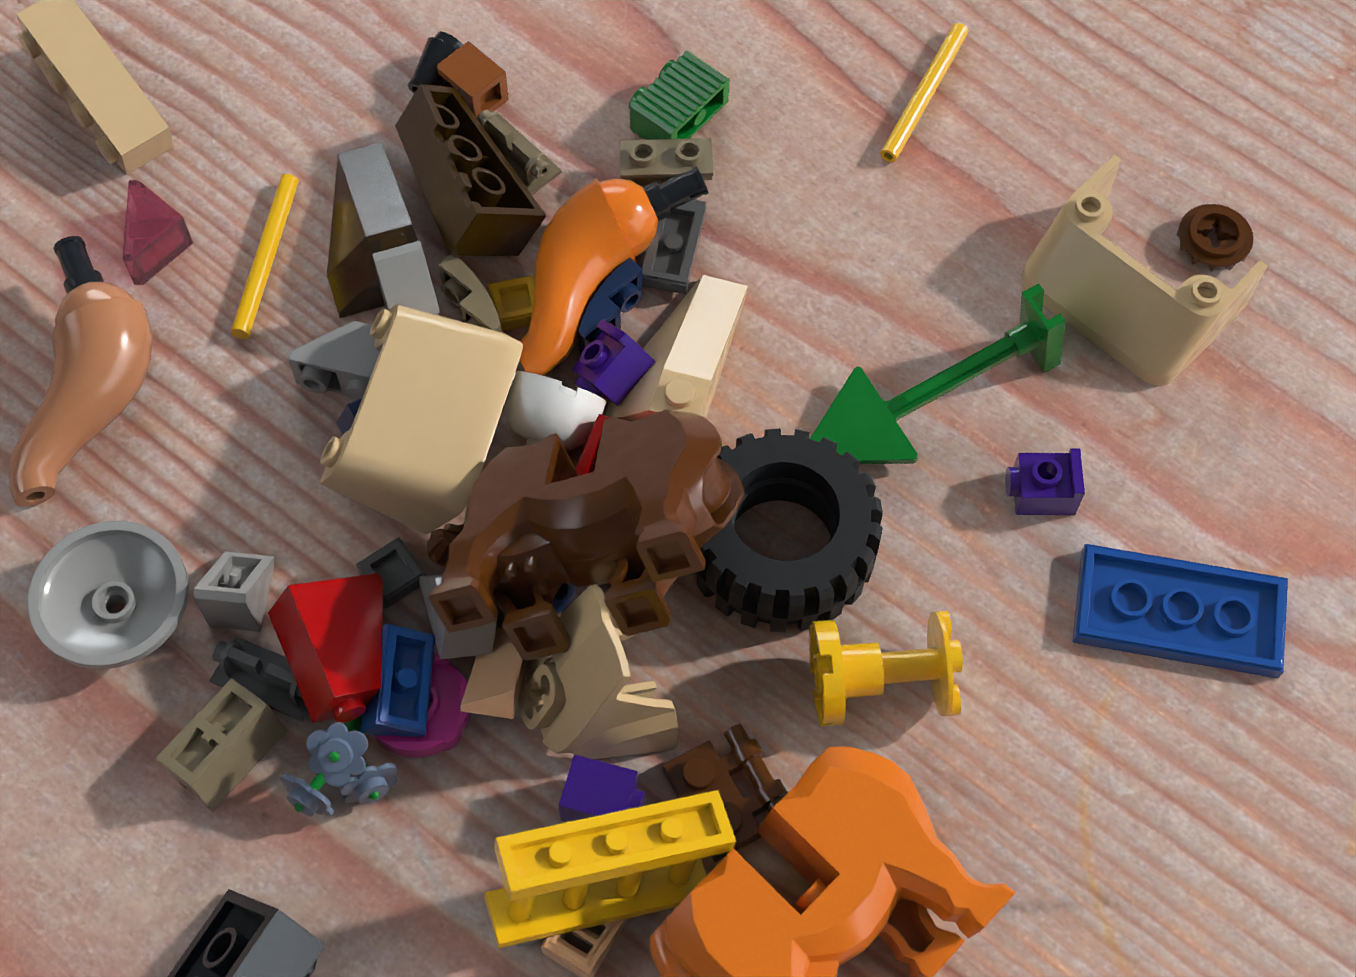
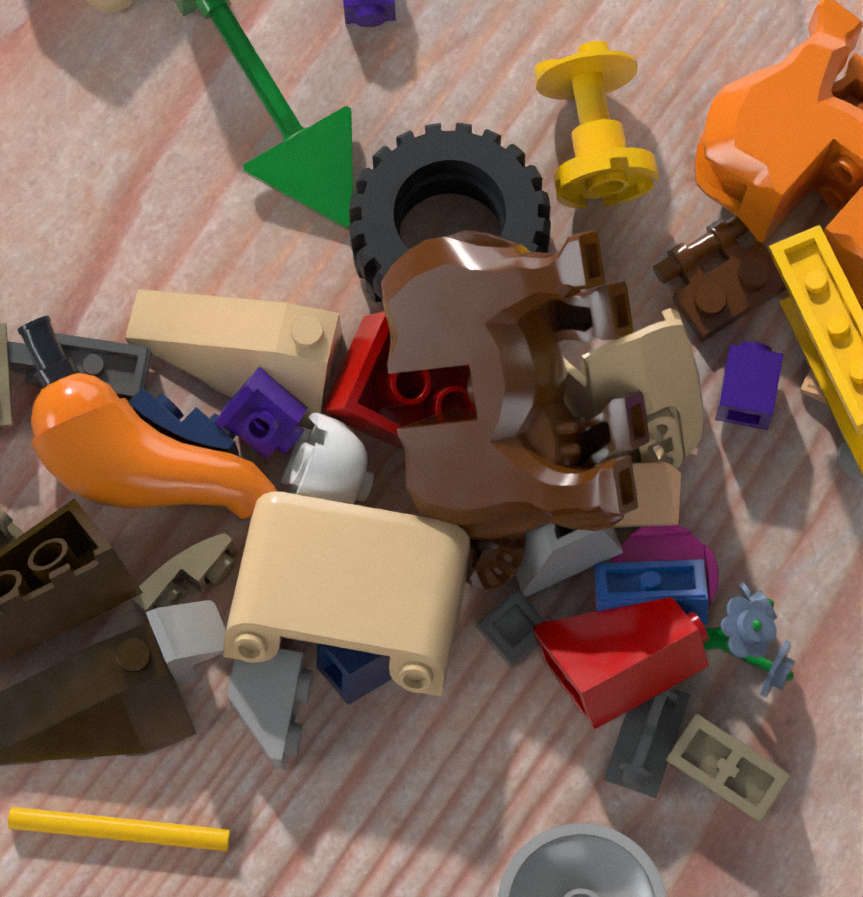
camera: 90 degrees left, 10 degrees up
(236, 591) = (549, 781): light grey slope -> none
(513, 301) = (169, 532): yellow tile -> none

